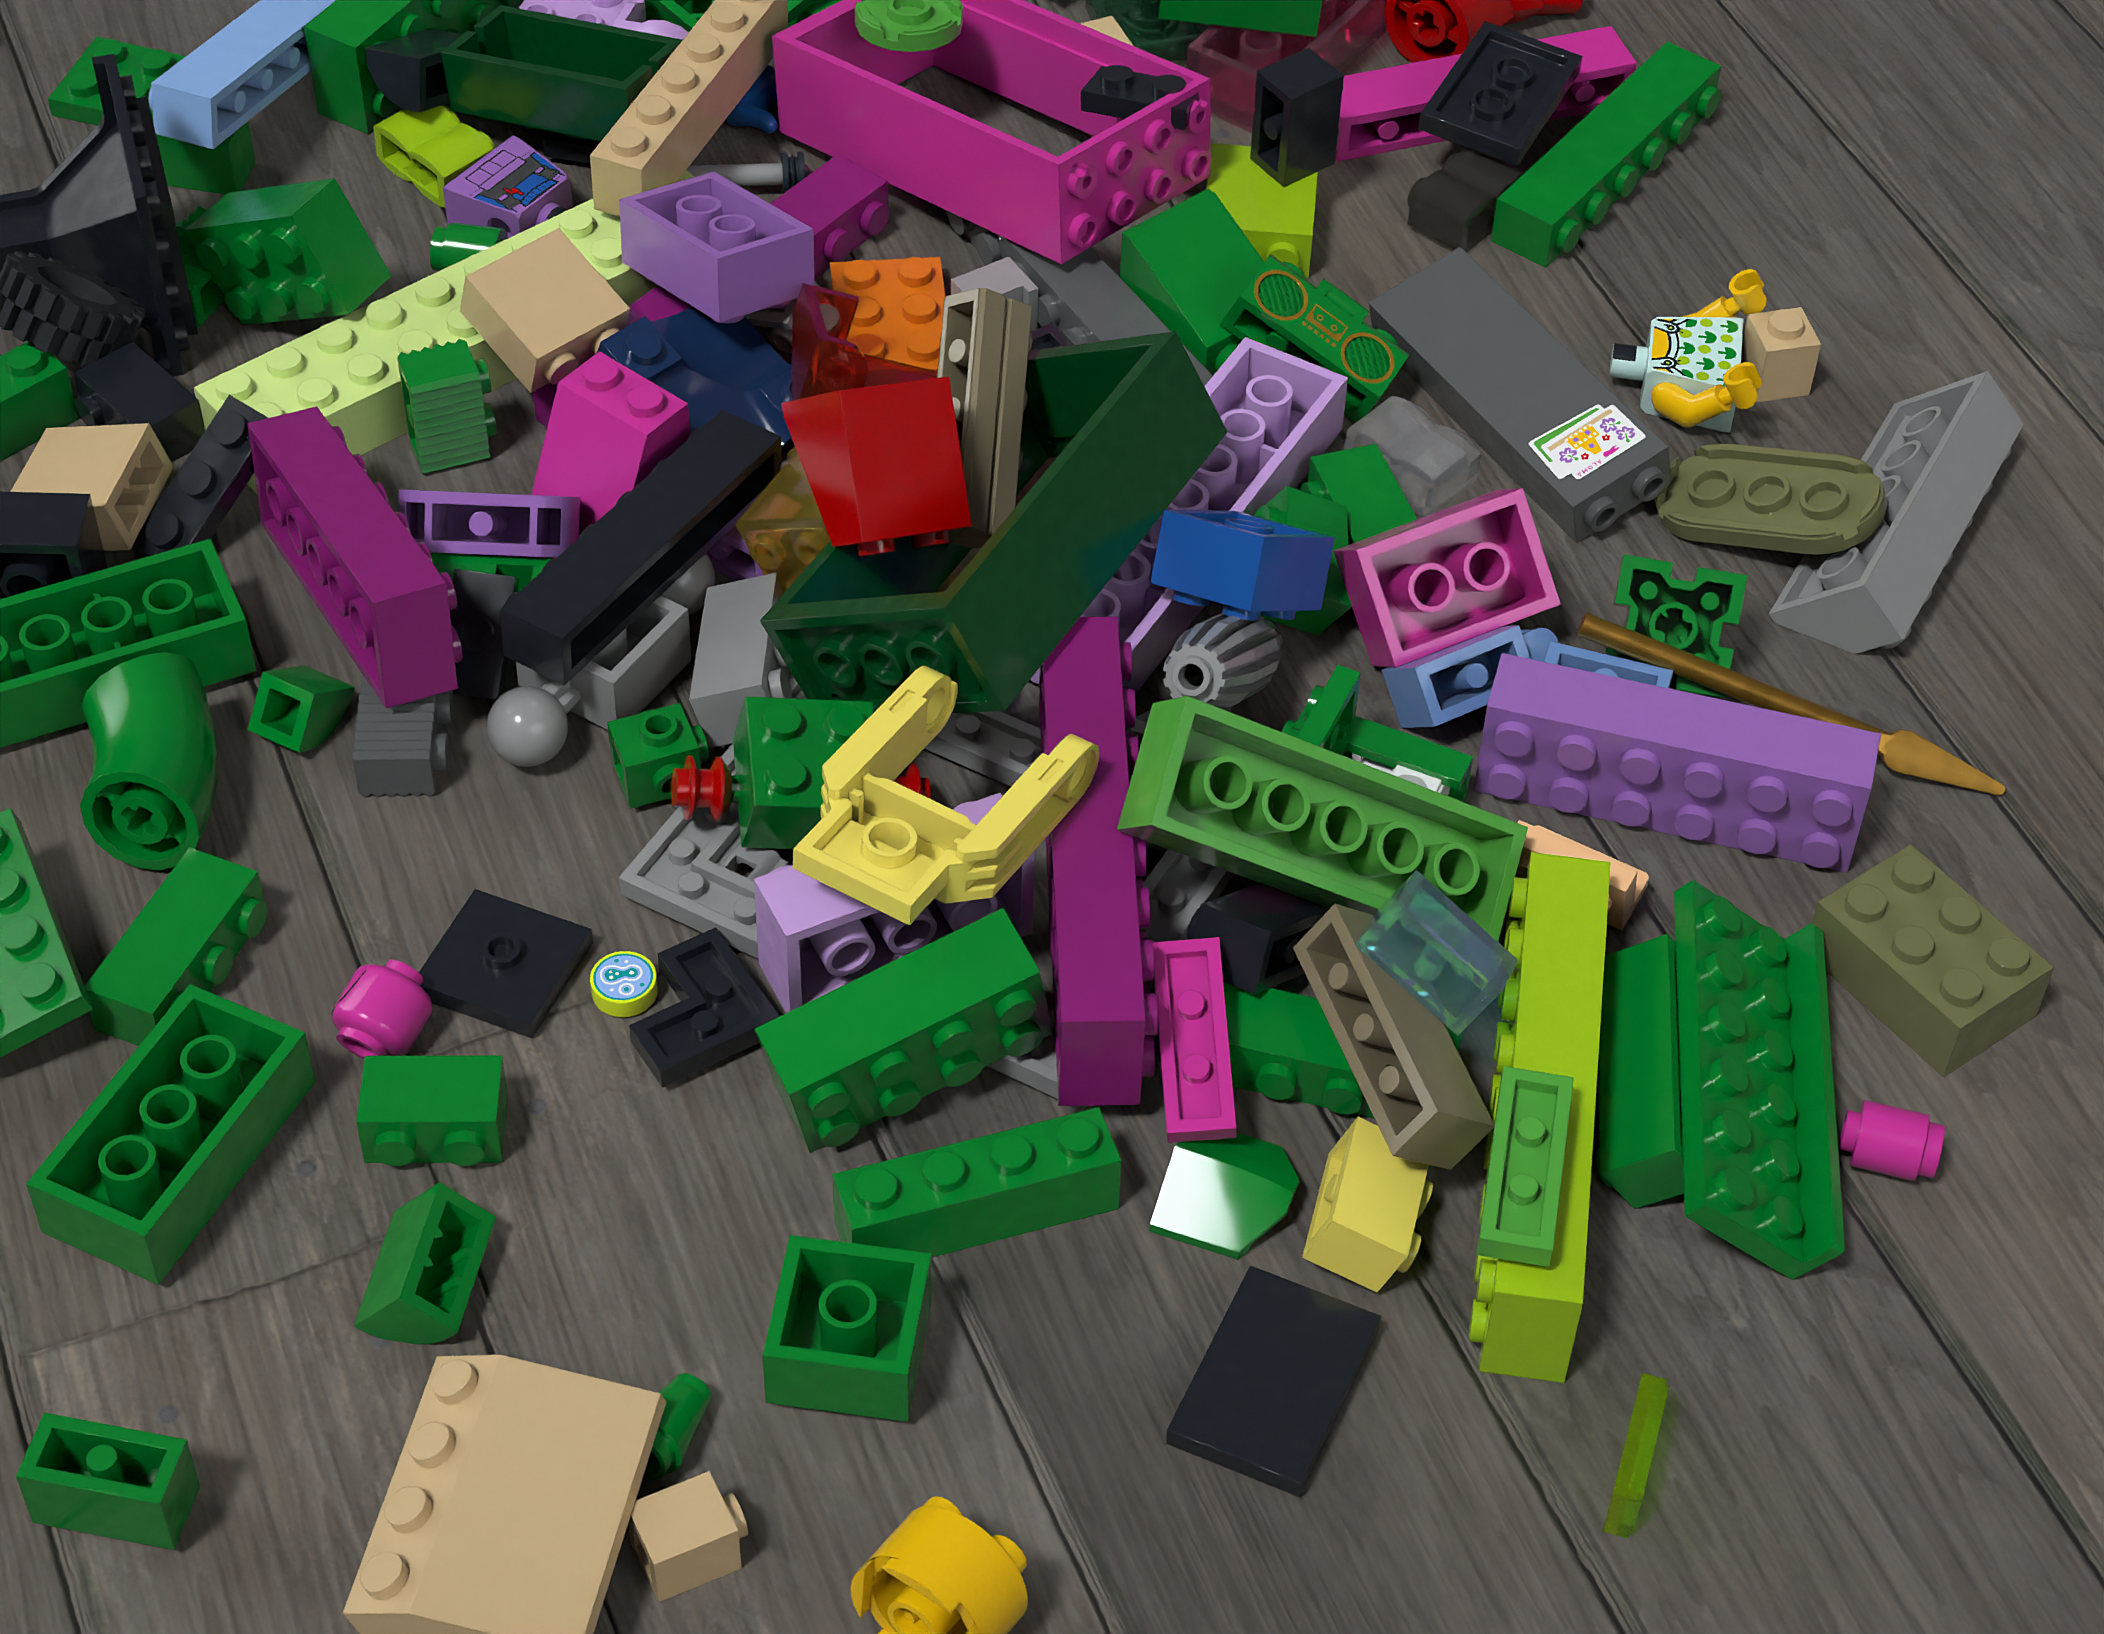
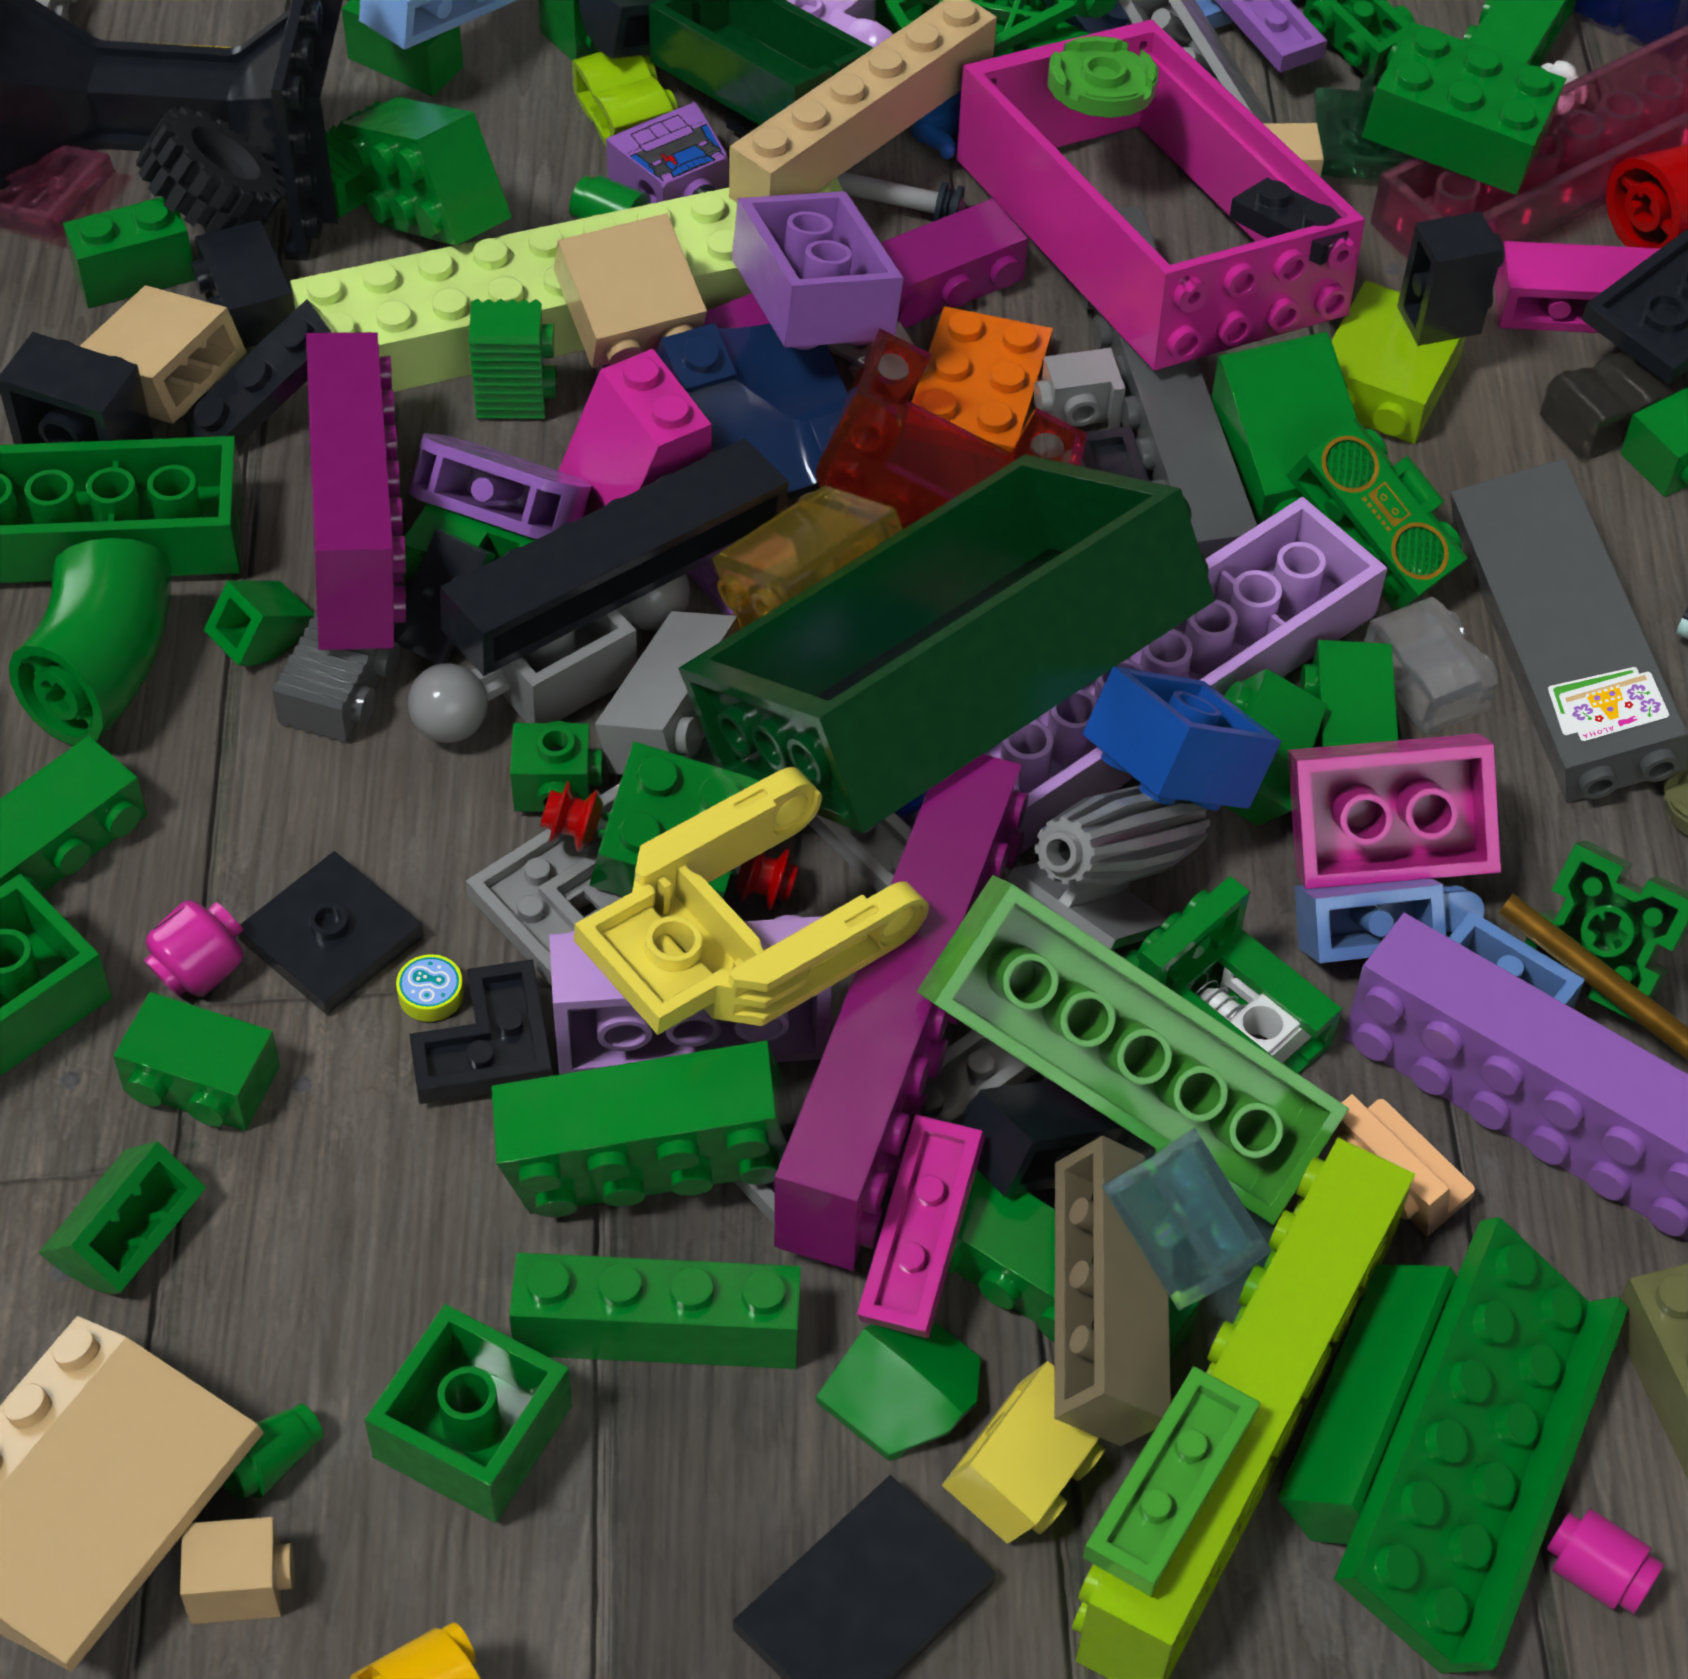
camera: 20 degrees right, 5 degrees up
(883, 463) = (851, 544): red slope -> none
(986, 359) = (977, 510): dark tan brick -> none

